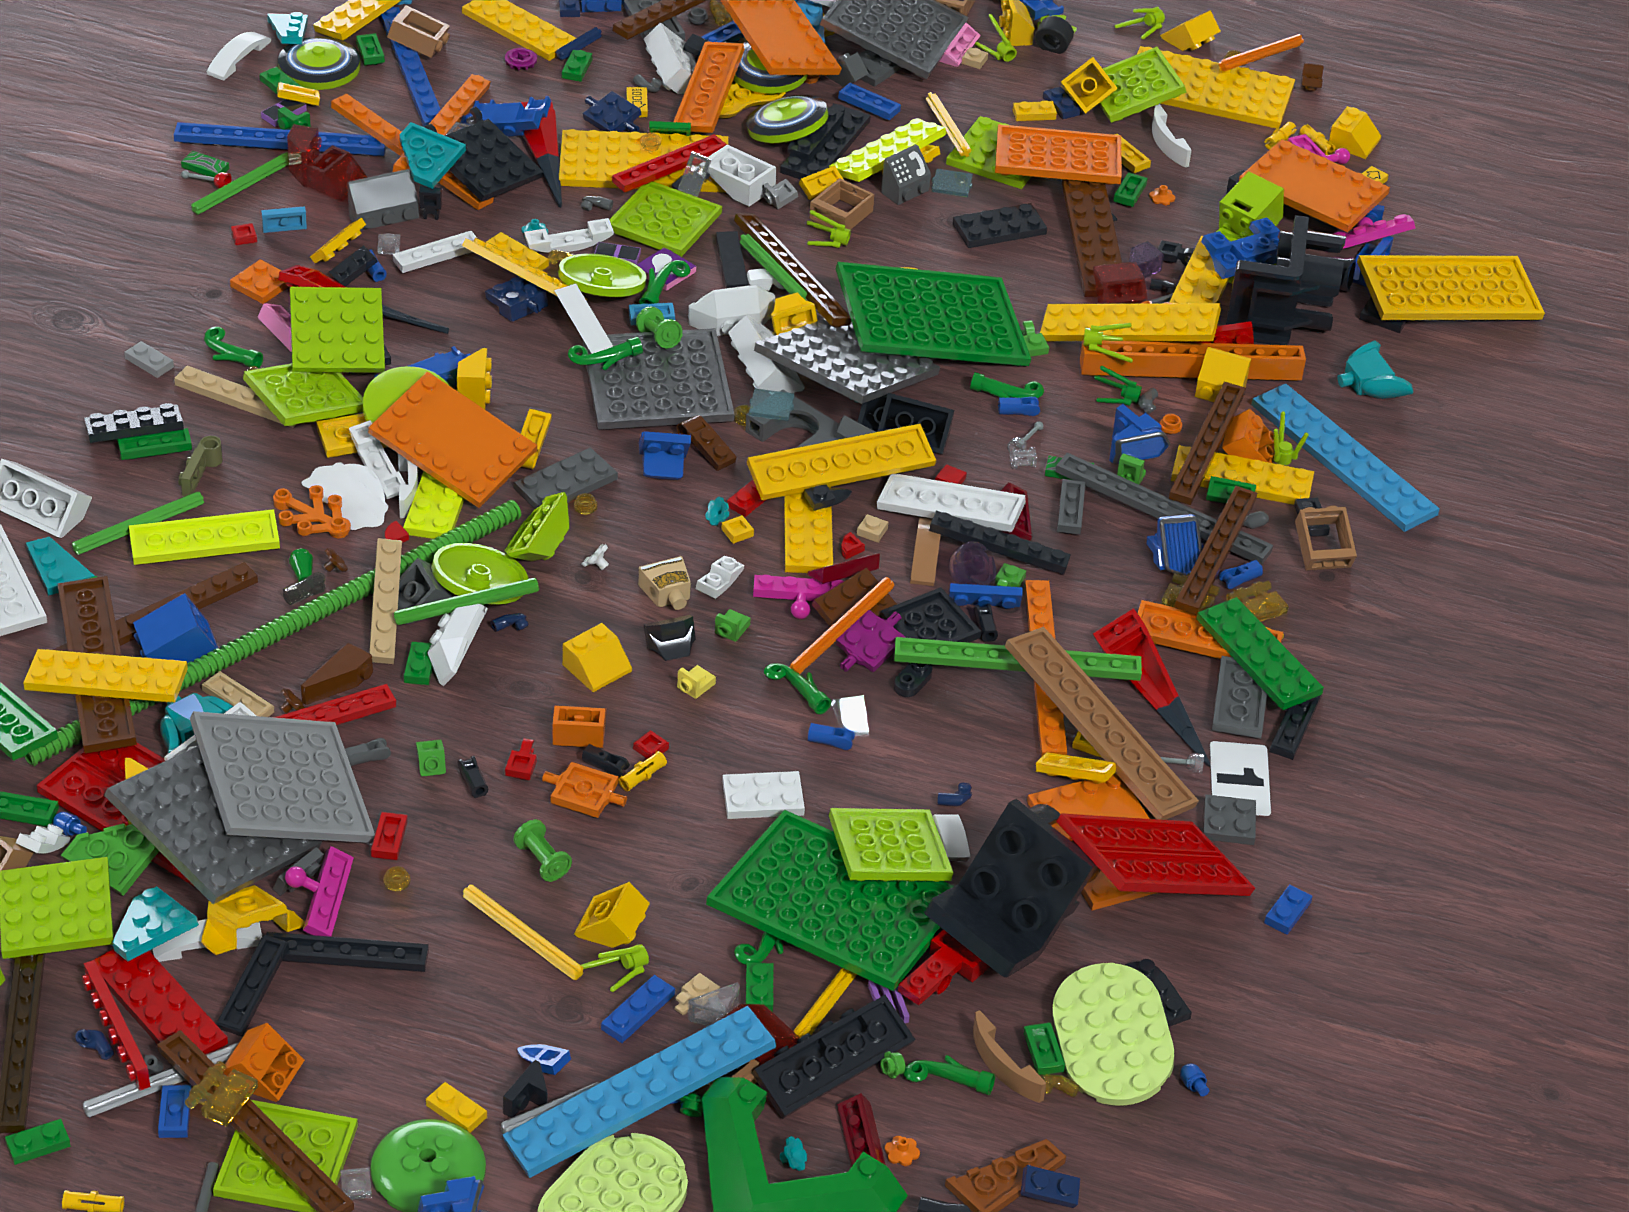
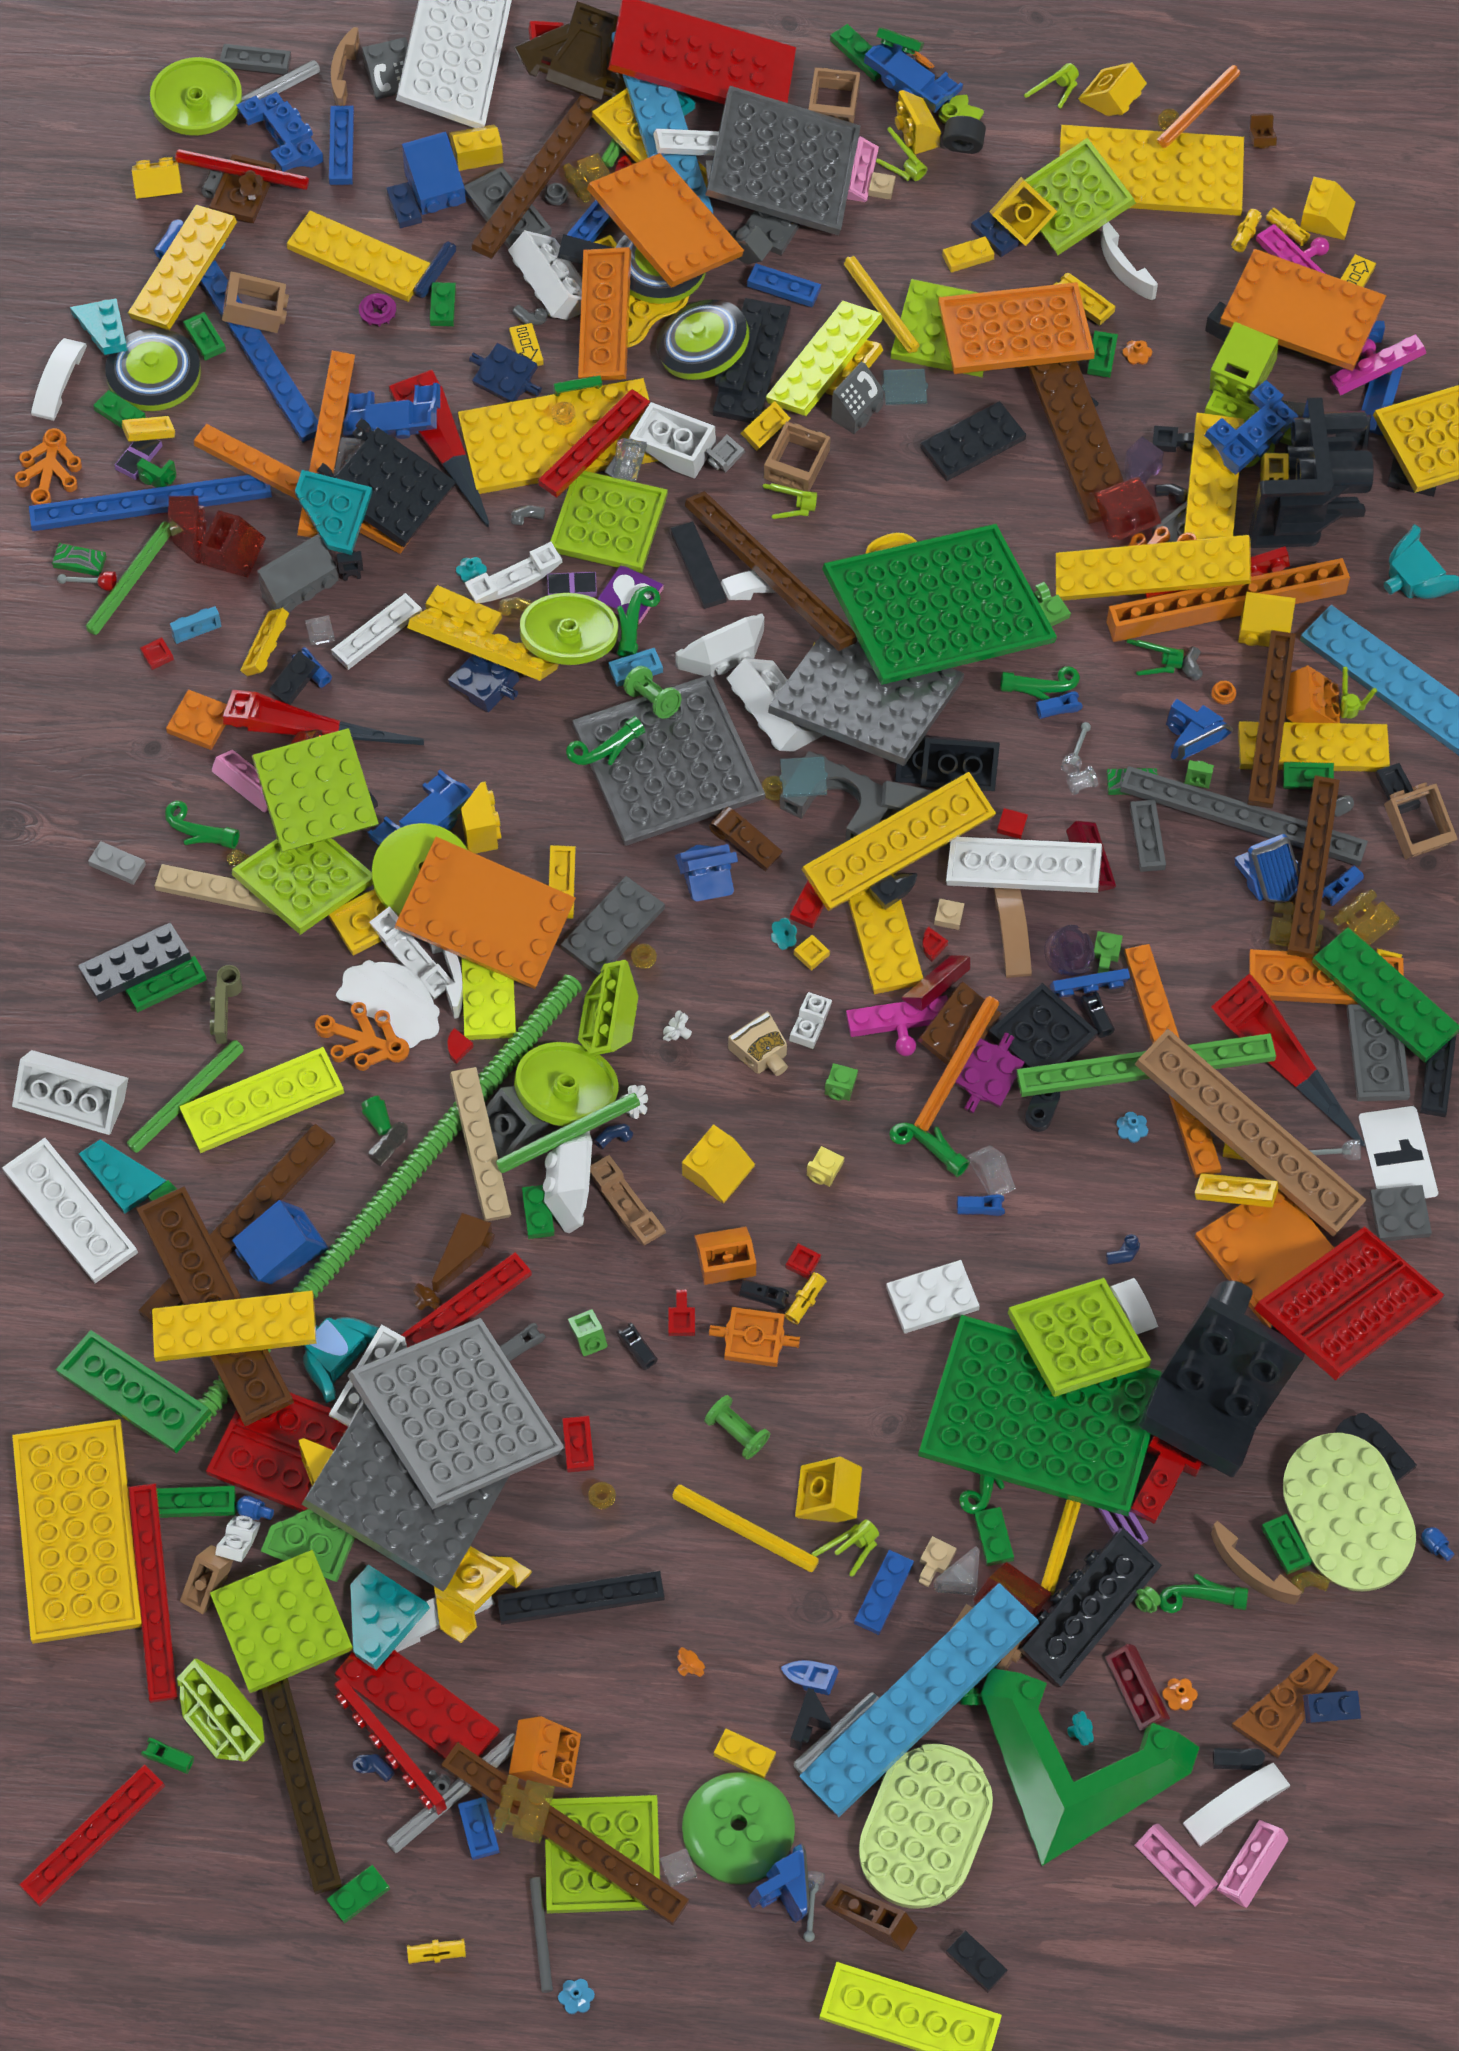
camera: 10 degrees left, 20 degrees up
(216, 89) = (48, 466): none -> orange plant
(233, 693) = (367, 1303): tan tile -> none
(252, 985) = (504, 1662): black tile -> none
(308, 863) = (510, 1504): dark grey plate -> none
(327, 890) = (540, 1531): dark pink plate -> none
(334, 561) = (409, 1099): reddish brown plant -> none
(429, 1022) = (690, 1663): none -> orange plant
(500, 668) = (624, 1201): none -> medium nougat slope
(538, 601) = (643, 1098): none -> white plant
(583, 318) = (571, 703): white sticker -> none
(671, 637) = (785, 1116): black slope -> none
(771, 266) = (750, 574): bright green axle -> none
(792, 312) = (790, 638): yellow slope -> none
(993, 709) = (1132, 1127): none -> dark azure plant
(1000, 542) = (1087, 906): black plate -> none
(1093, 337) = (1123, 604): lime plant -> none

